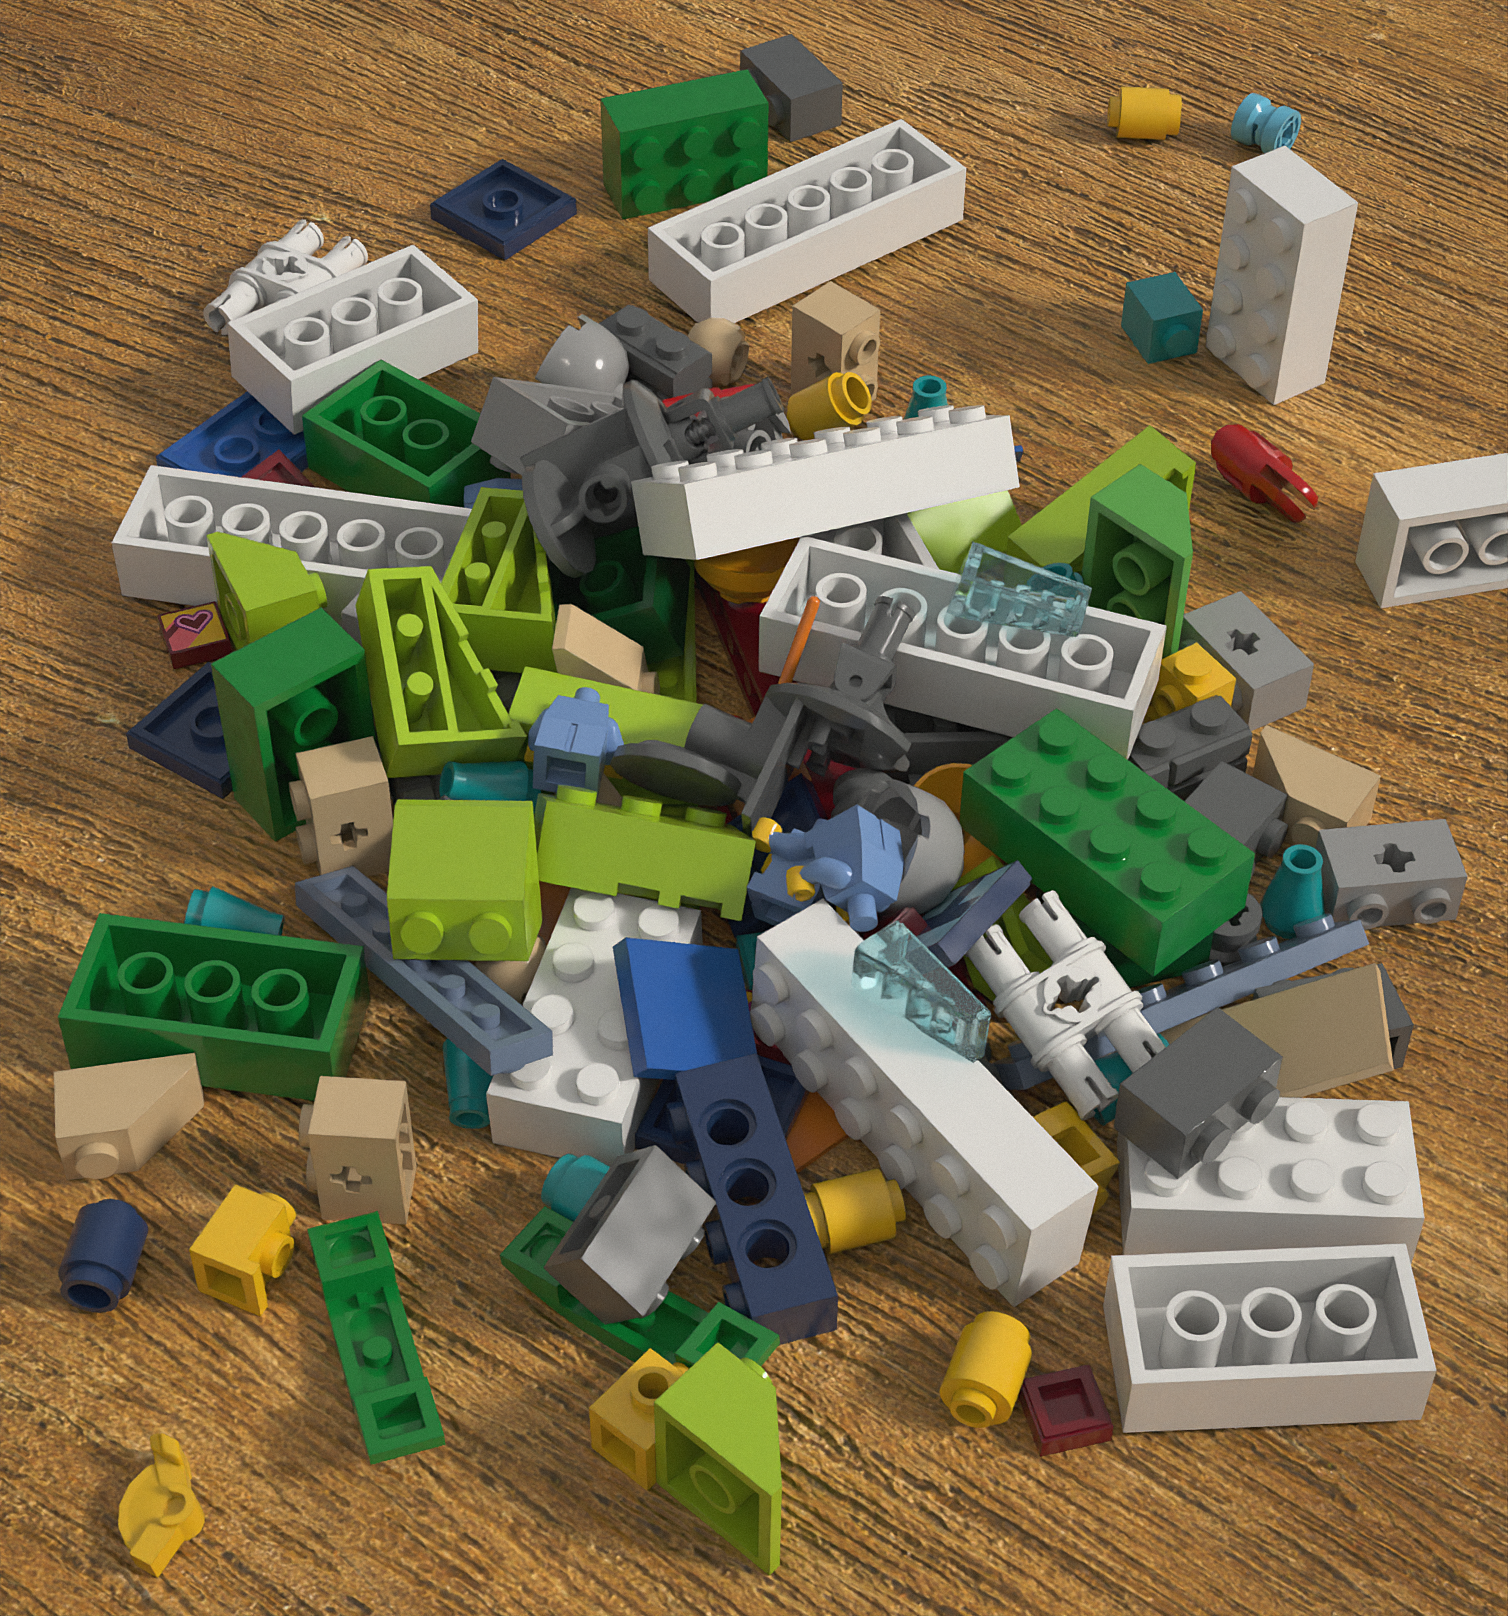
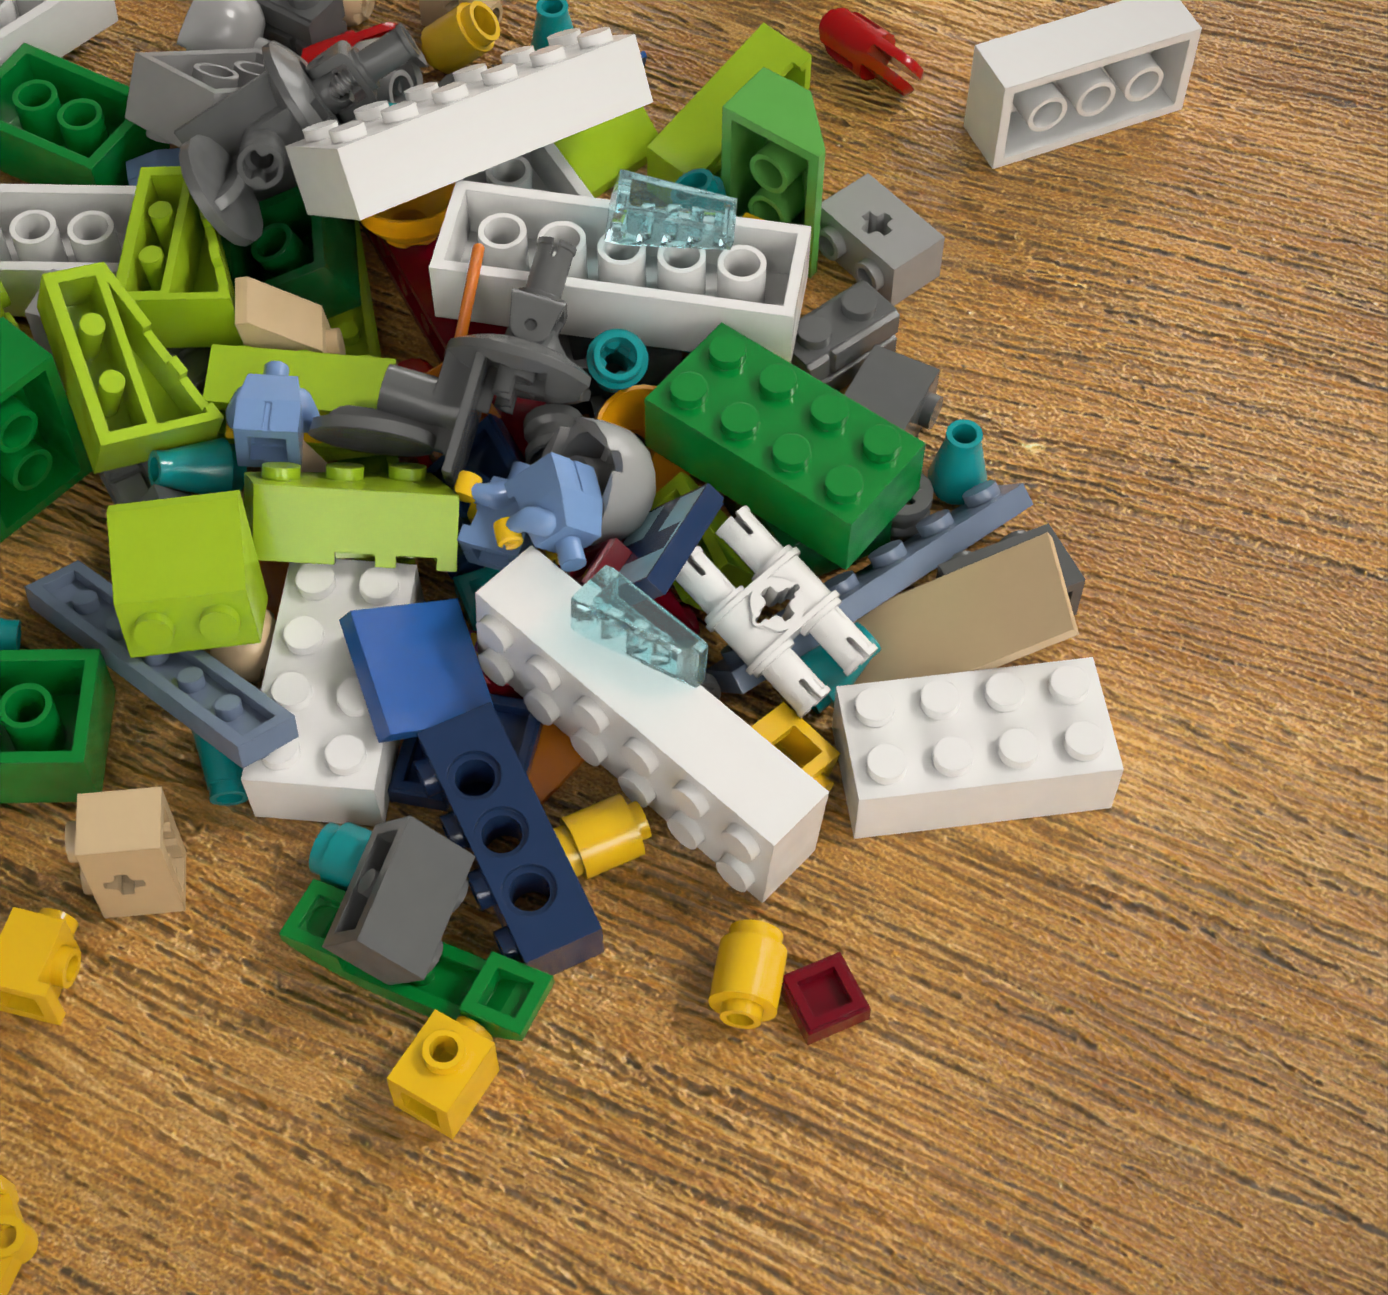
camera: 10 degrees left, 10 degrees up
(345, 808) = (60, 505): tan brick -> none
(374, 1339) = (173, 1038): green slope -> none
(723, 1451) = (519, 1101): lime slope -> none
(943, 723) = (620, 348): none -> teal cone
(1187, 679) = (833, 268): yellow brick -> none
(1198, 1093) = (906, 684): dark grey brick -> none
(1267, 1338) = (997, 904): white brick -> none
(1319, 786) = (972, 361): tan slope -> none
(1391, 873) = (1042, 431): light grey brick -> none

